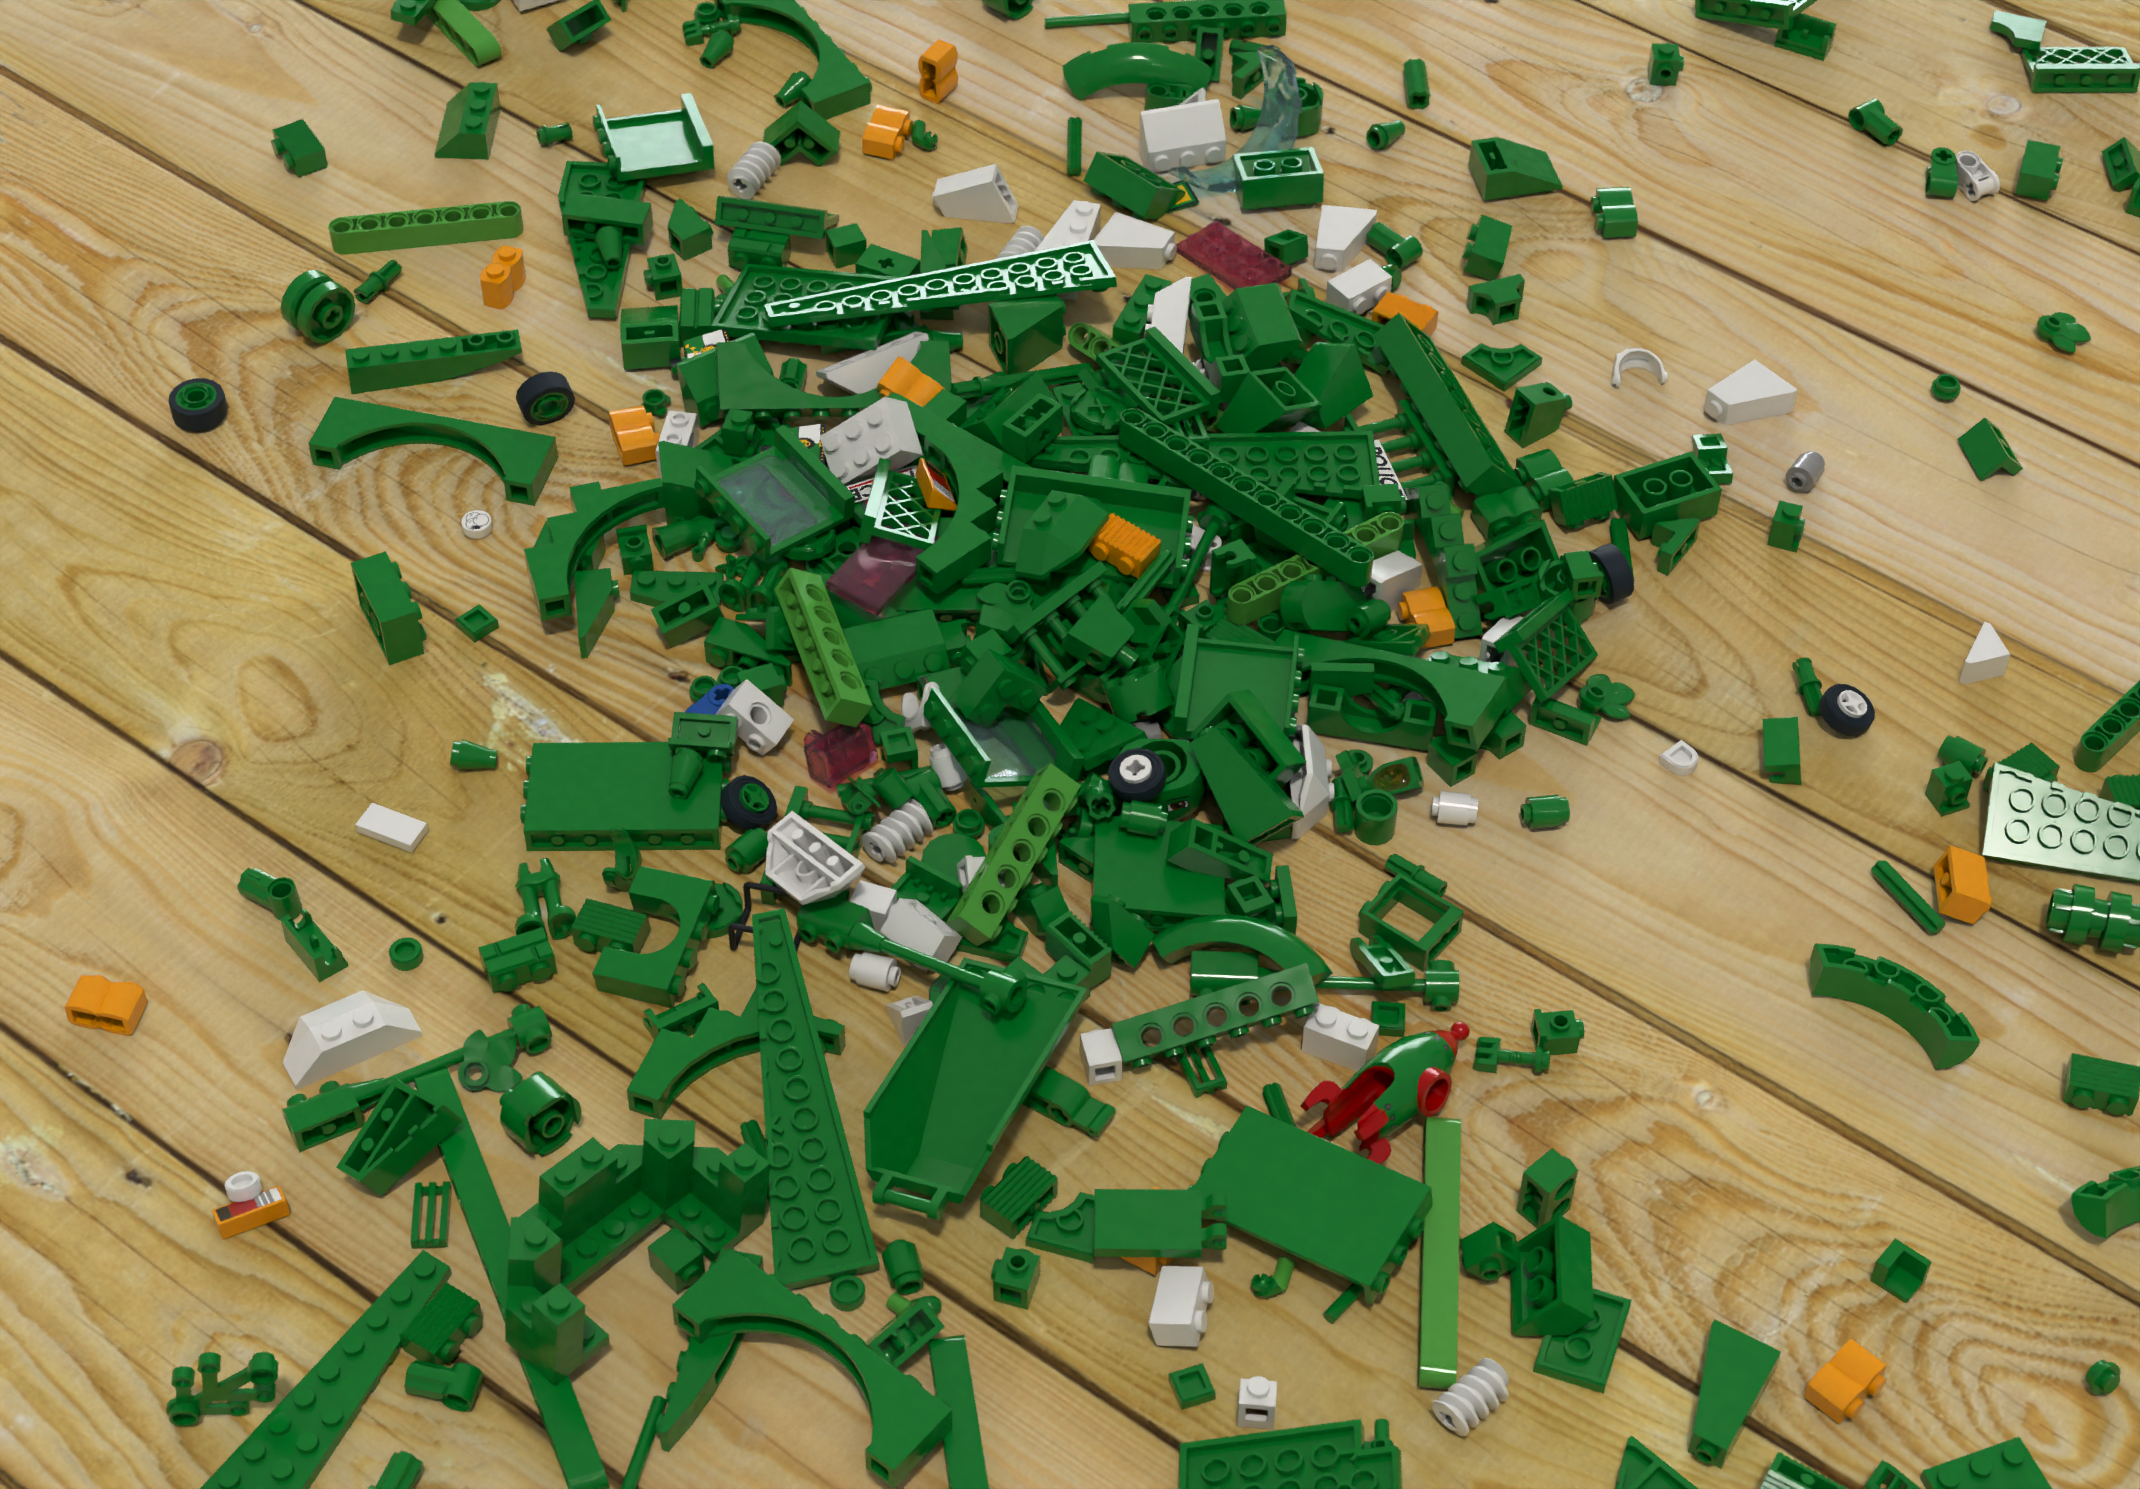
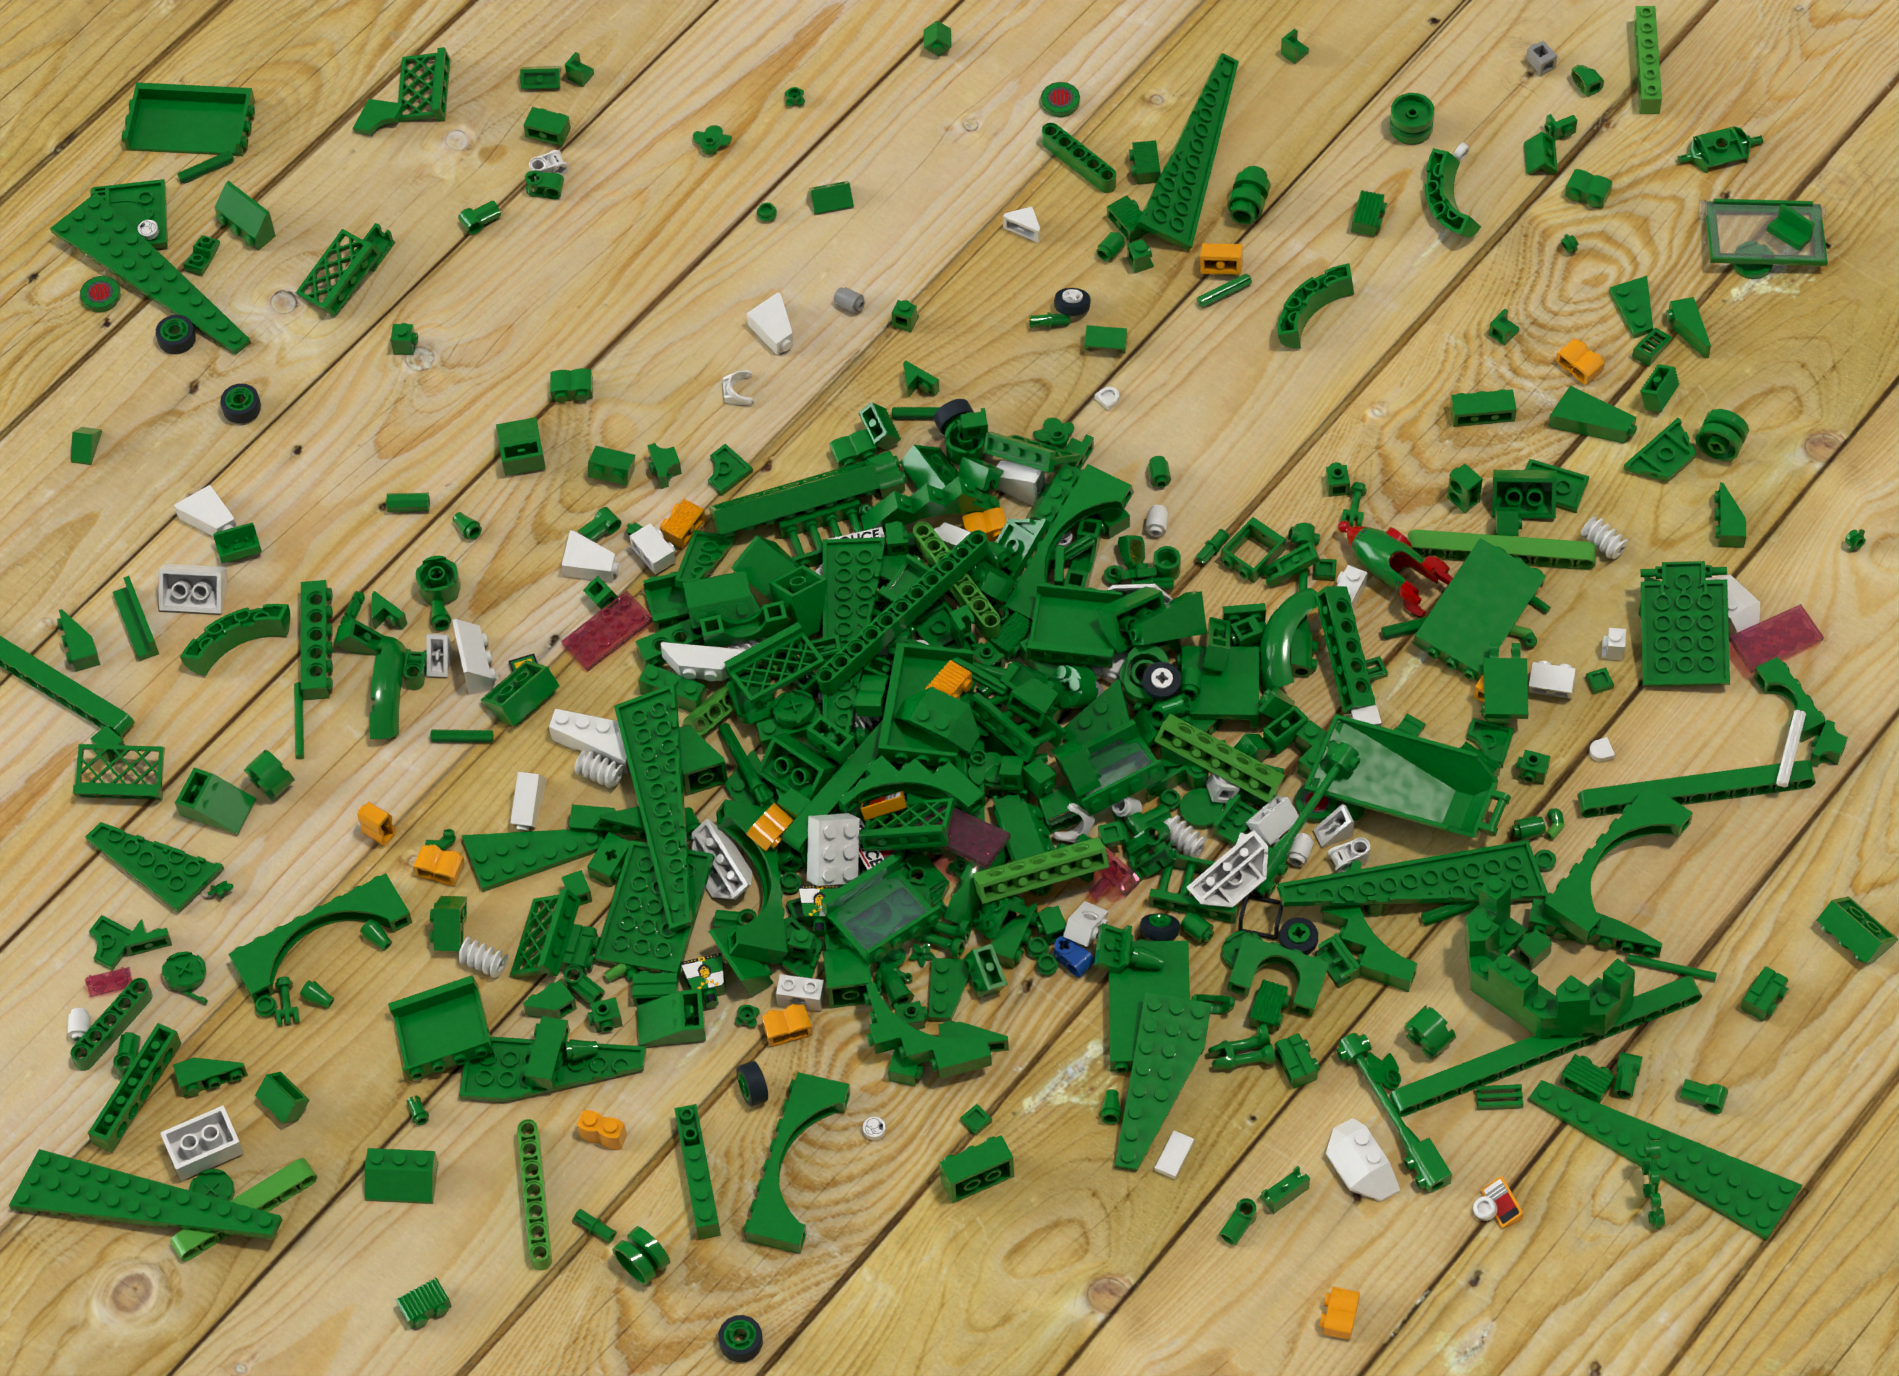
camera: 85 degrees left, 10 degrees up
(396, 1137) = (1456, 1107): green wedge -> none
(406, 954) = (1286, 1134): green tile -> none
(528, 797) = (1165, 1054): none -> green wing
(710, 254) = (583, 986): none -> green piece
(726, 968) = (1290, 938): none -> black wheel
(863, 1035) = (1345, 854): none -> white piece
(901, 199) = (517, 855): none -> green wing
(906, 1332) = (1584, 822): green brick -> none
(1054, 1381) = (1601, 750): none -> white tile
(1135, 243) = (587, 692): white slope -> none
(1274, 129) = (480, 603): clear light blue windscreen -> none
(1278, 178) = (522, 594): green slope -> none
(1536, 413) = (789, 439): green torso -> none
(1666, 492) = (877, 377): green brick -> none
(1712, 453) = (827, 354): green slope -> none
(1725, 1233) = (1483, 408): none -> green brick

